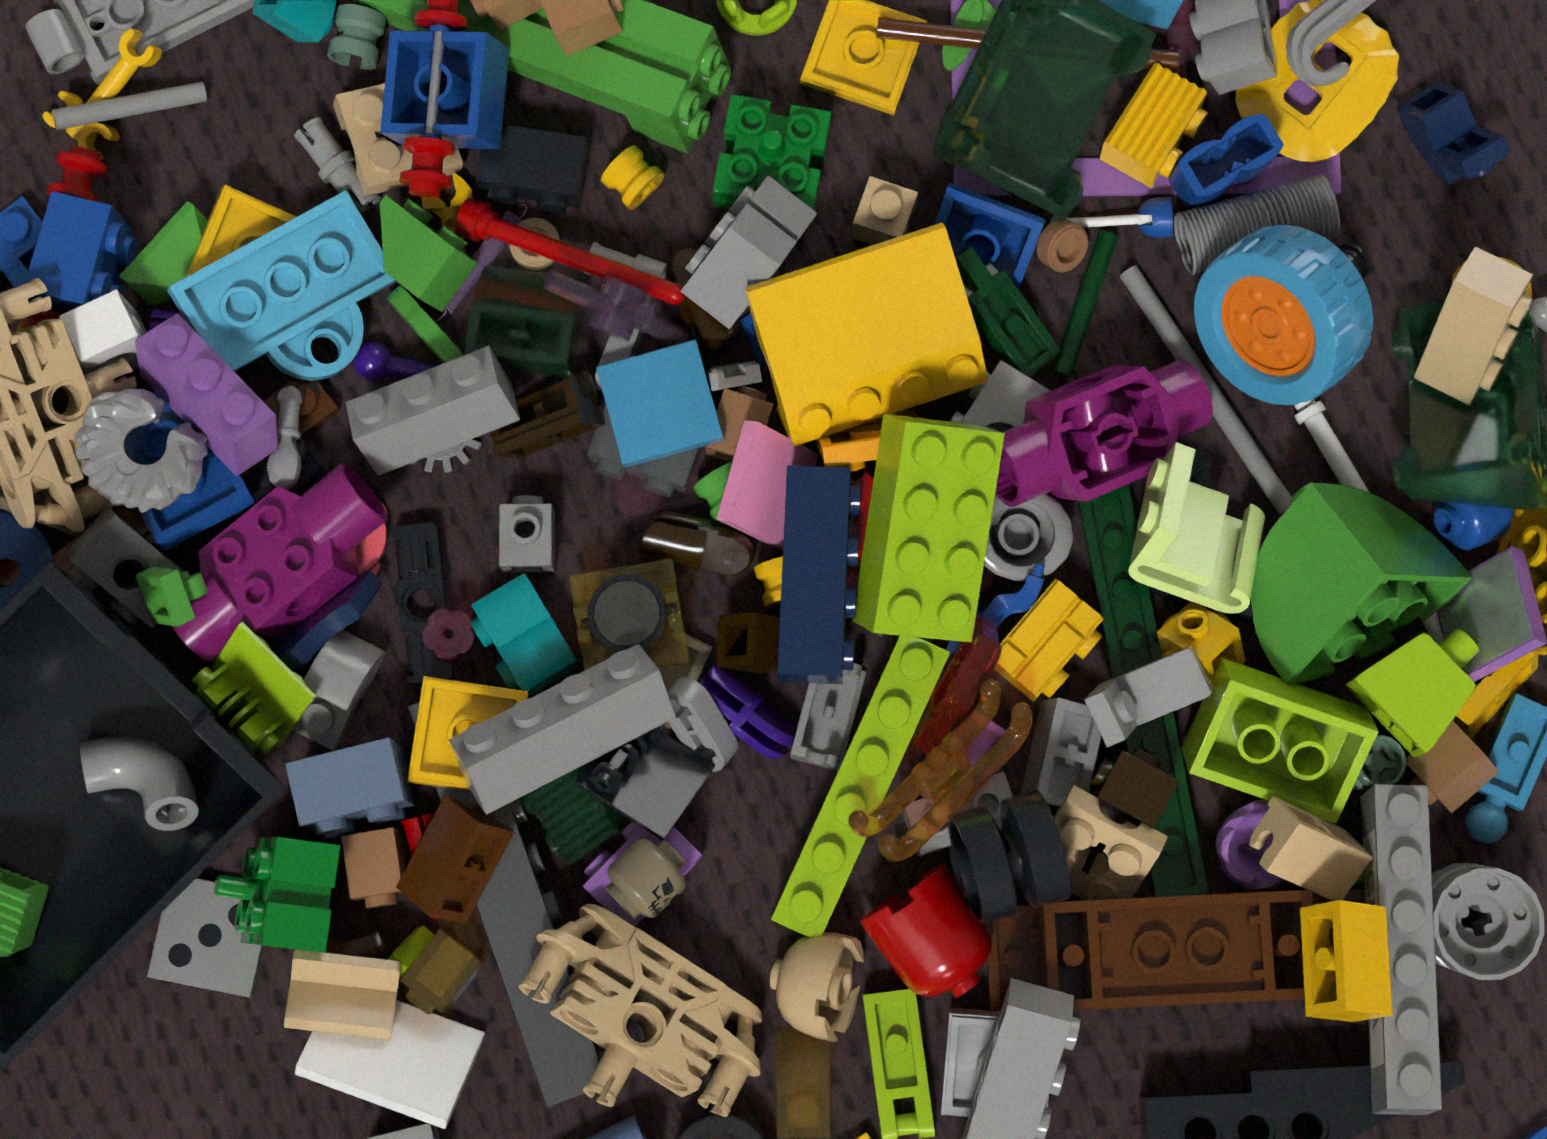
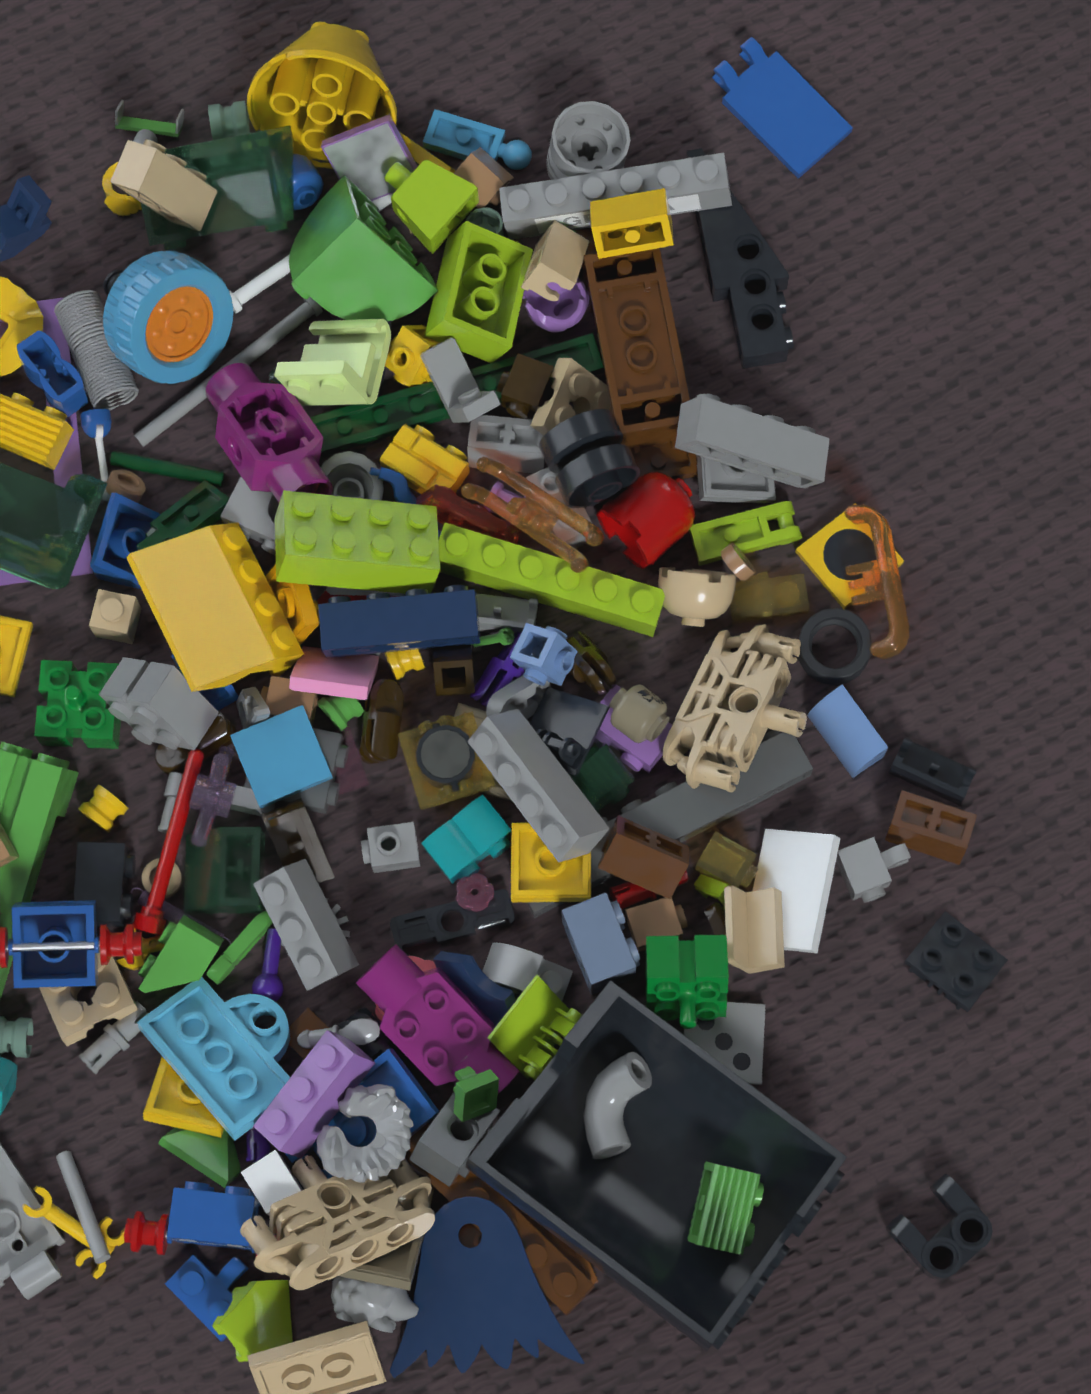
camera: 95 degrees left, 5 degrees down
(736, 823) = (591, 665): none -> dark brown arm
(747, 762) = (543, 654): none -> medium blue brick
(787, 716) = (504, 636): none -> bright green piece
(850, 1046) = (737, 562): none -> medium nougat tile

